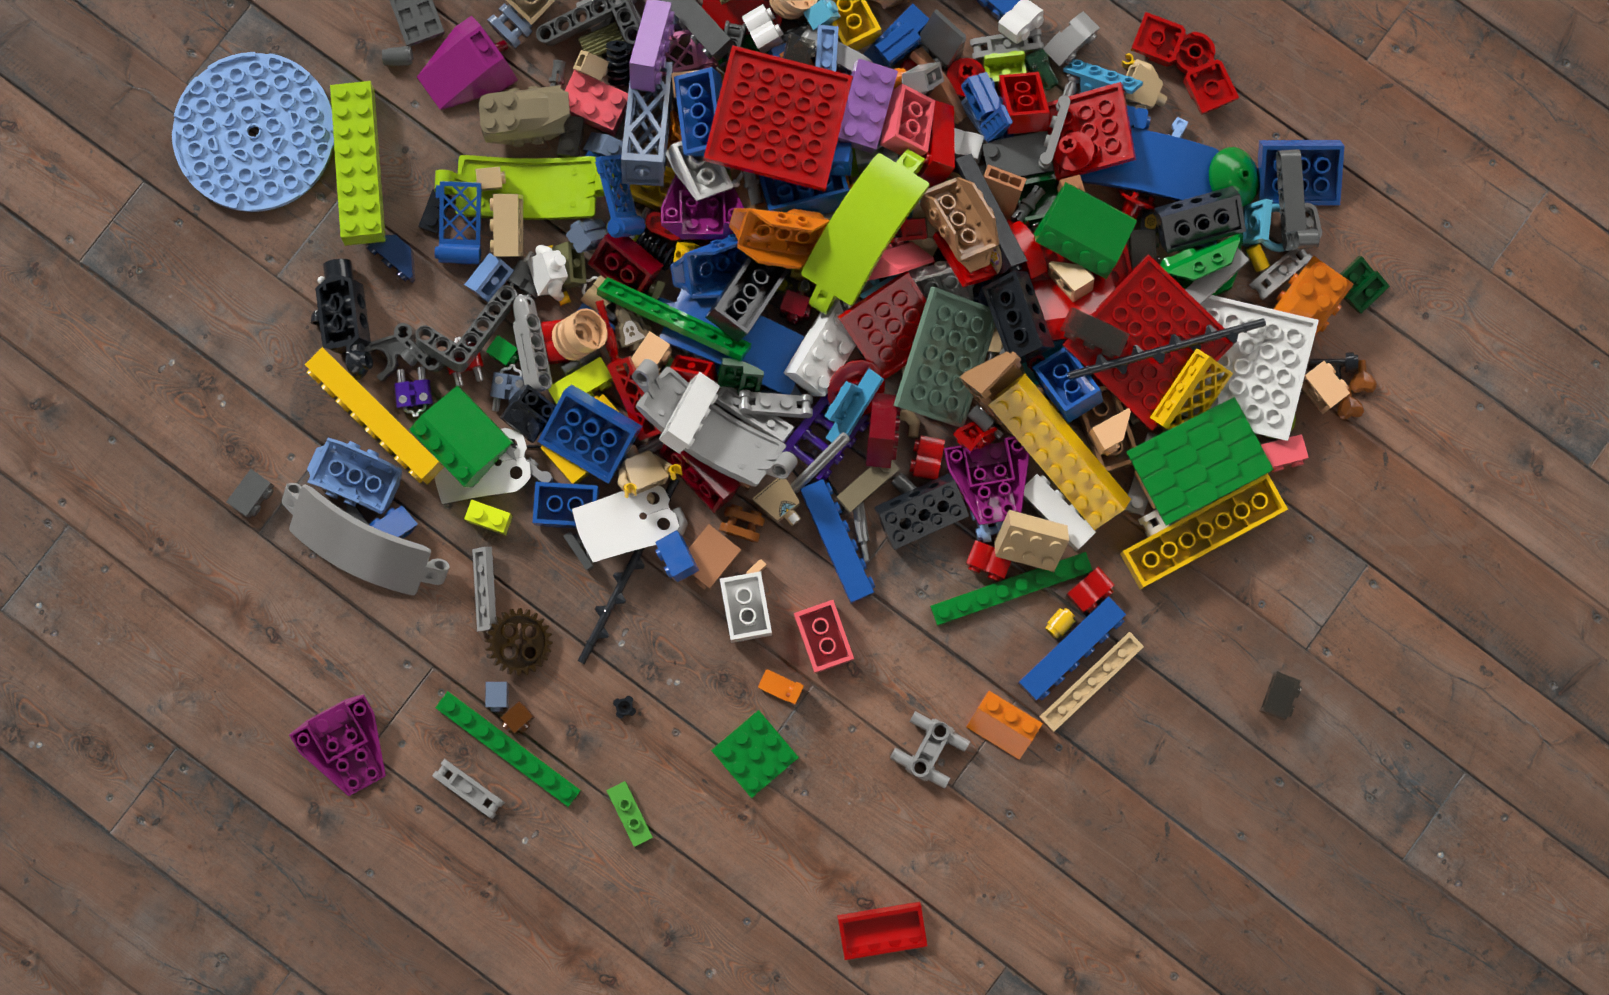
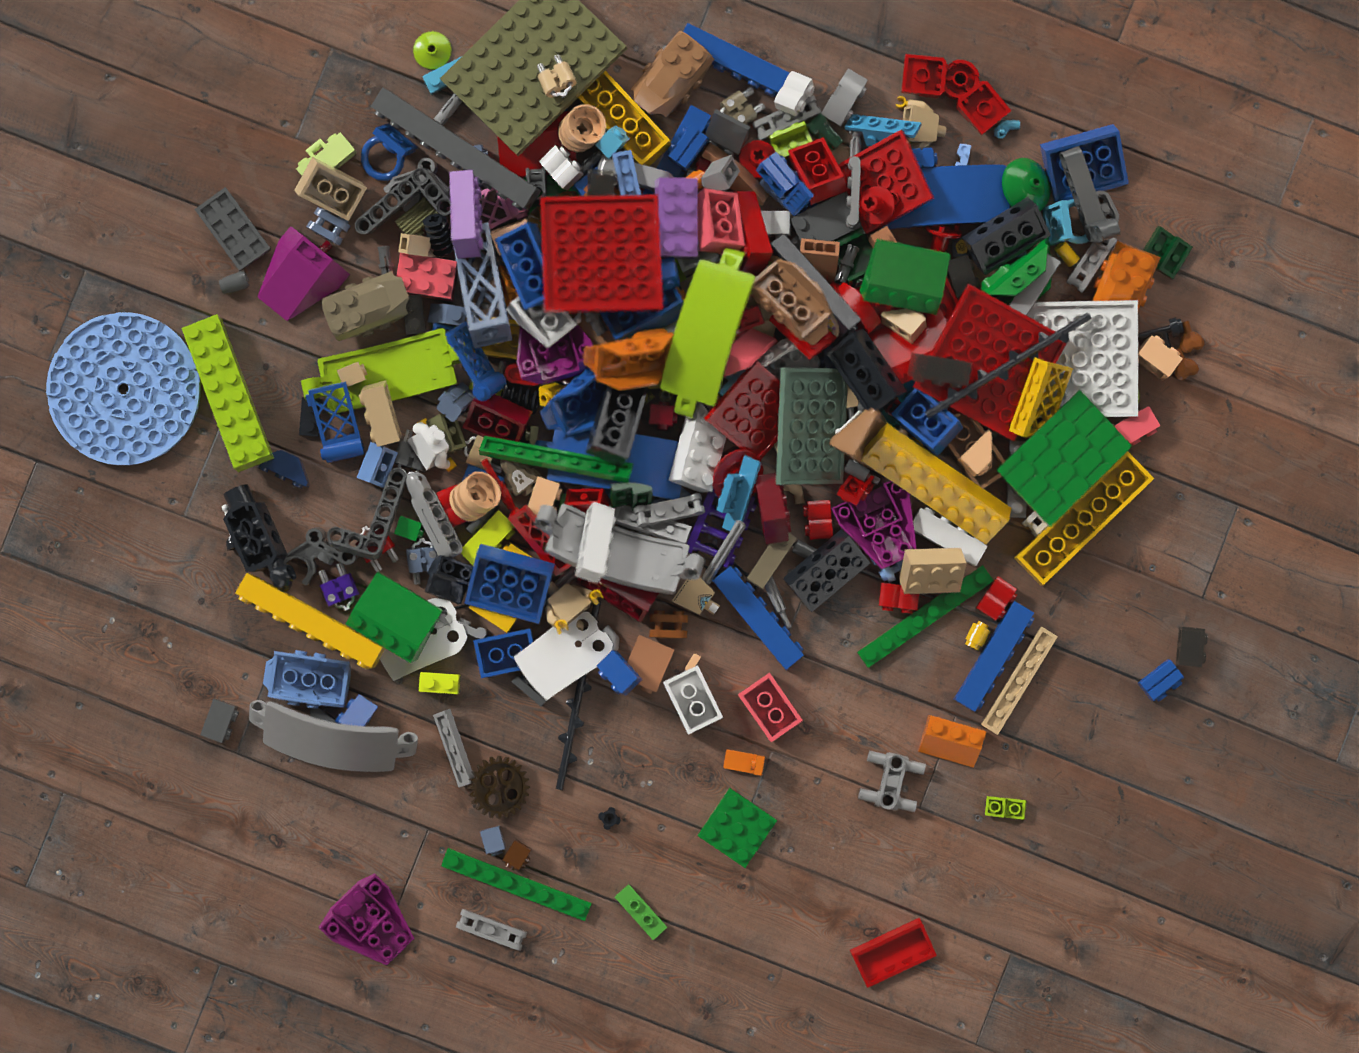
camera: 15 degrees left, 5 degrees up
(961, 18) = (738, 108): none -> dark tan piece
(1041, 811) = (1005, 807): none -> lime slope
(1227, 113) = (1004, 126): none -> medium azure arm
(1240, 722) = (1161, 680): none -> blue brick

